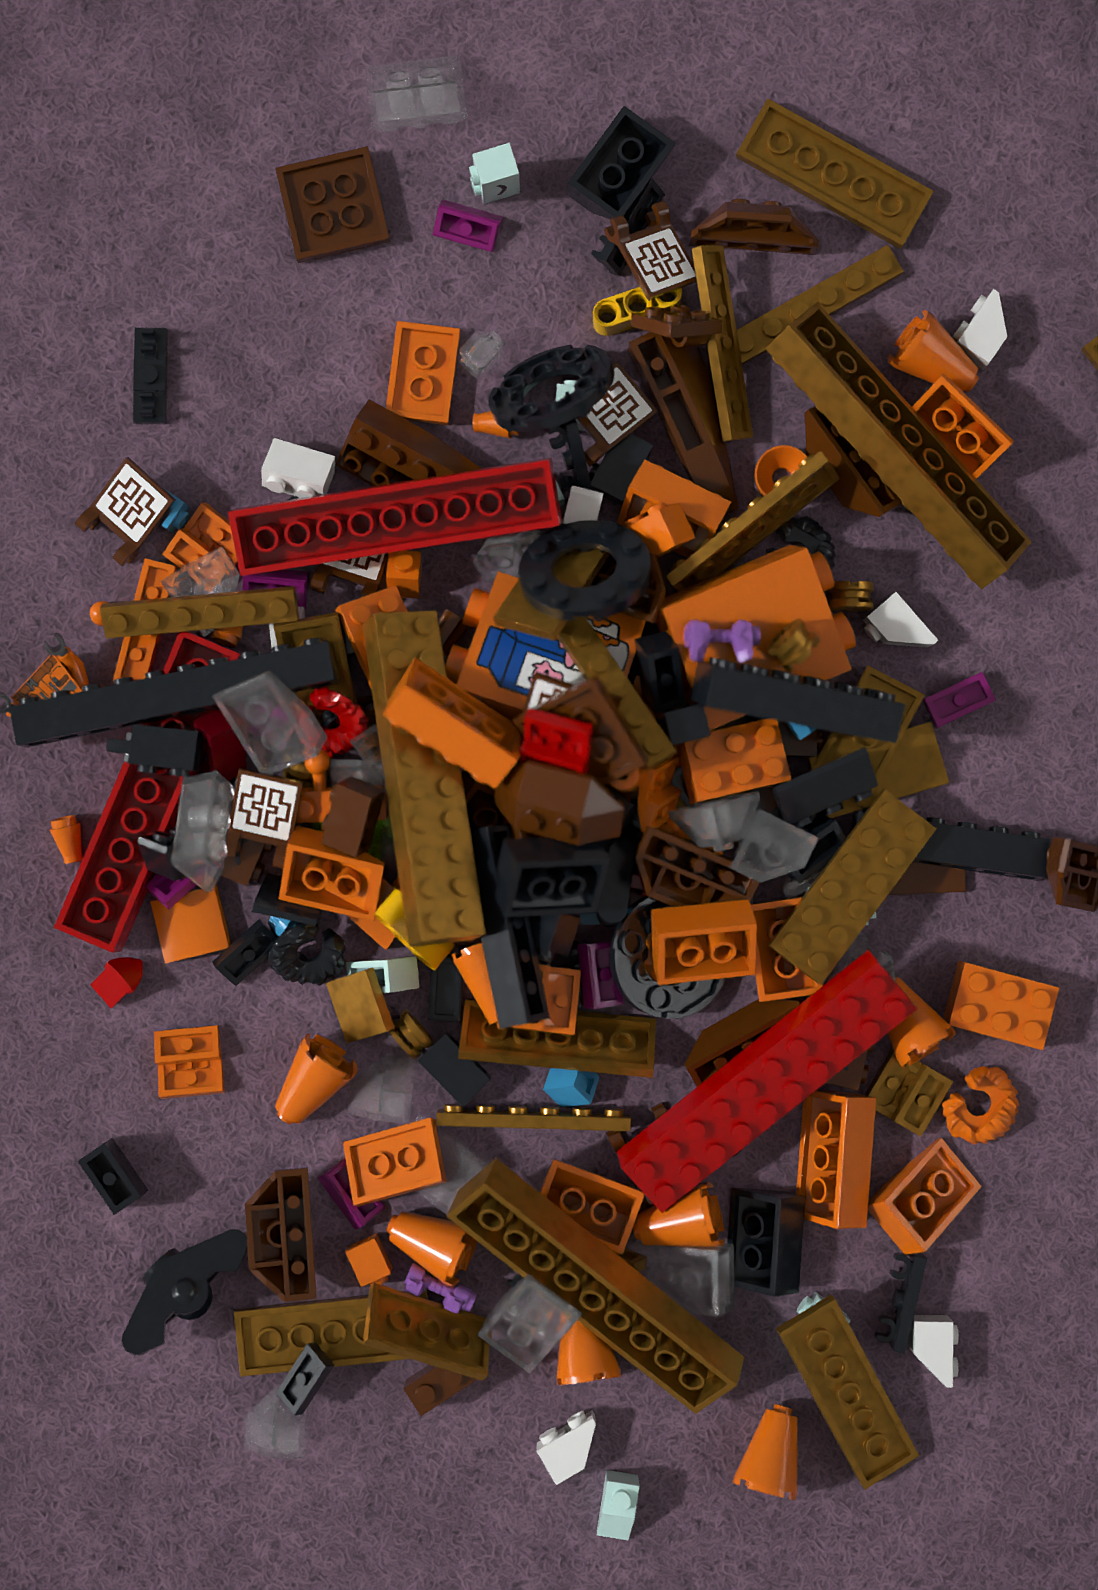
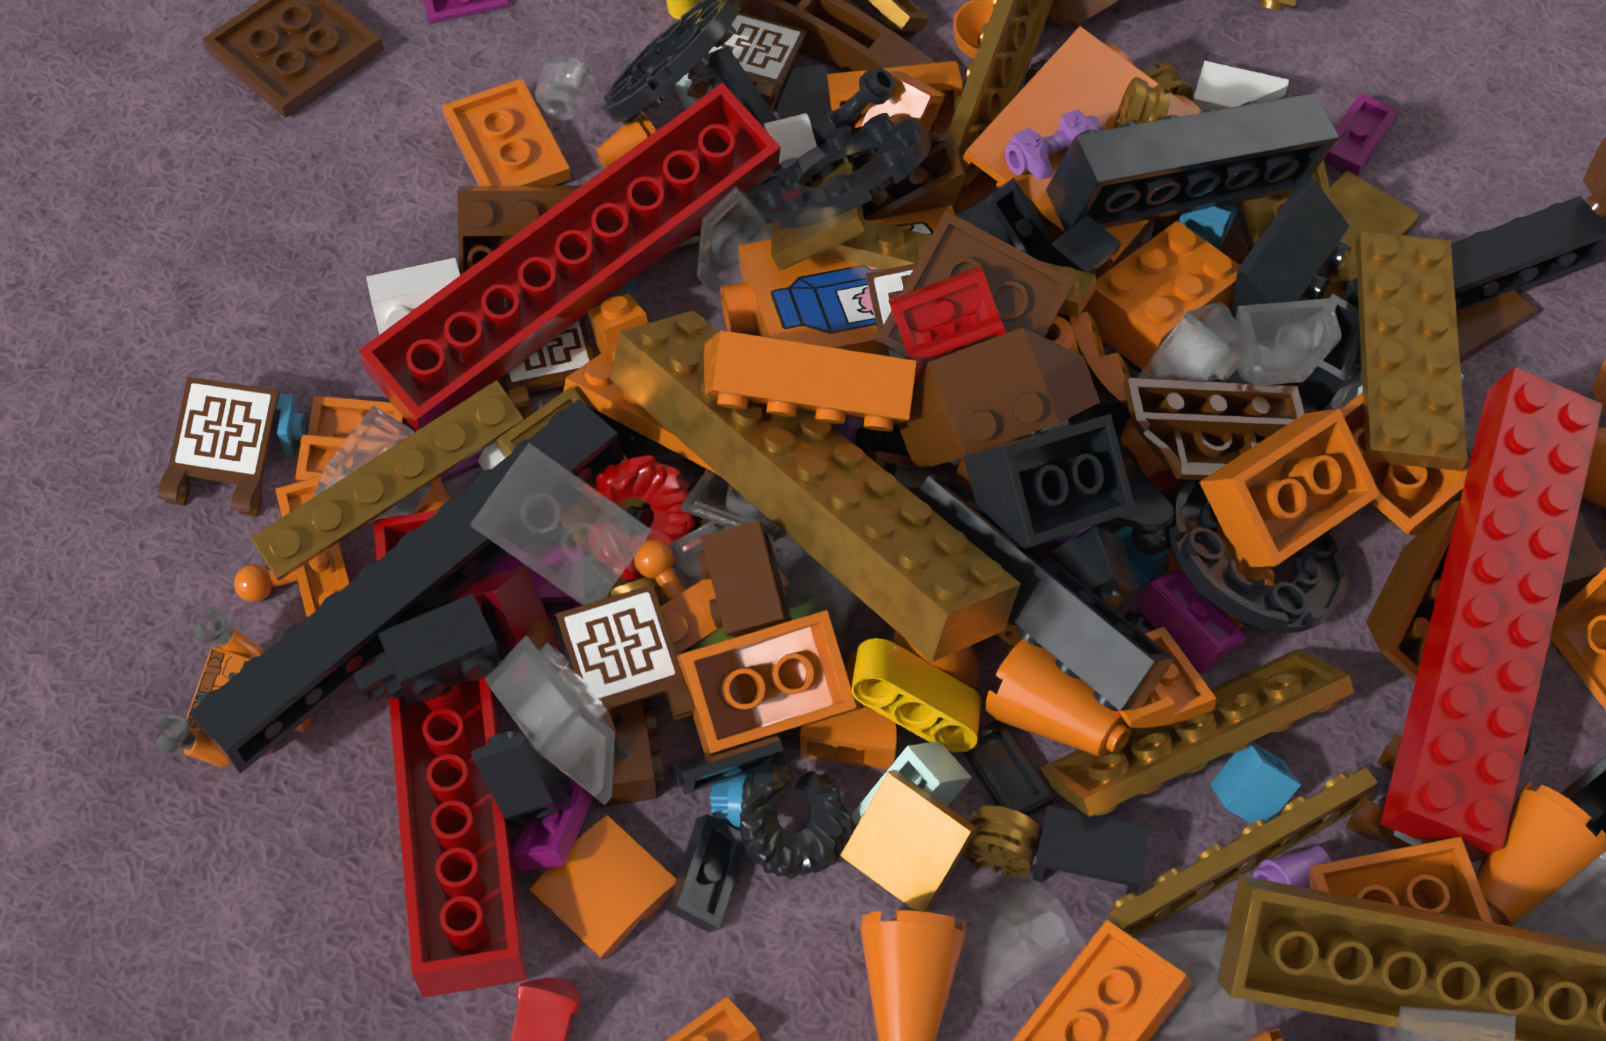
camera: 35 degrees left, 30 degrees down
(67, 836) = (361, 871): orange cone -> none
(150, 375) = (166, 307): black plate -> none
(552, 1145) = (1292, 868): none -> medium lavender cone
(643, 517) = (875, 87): none -> black hinge

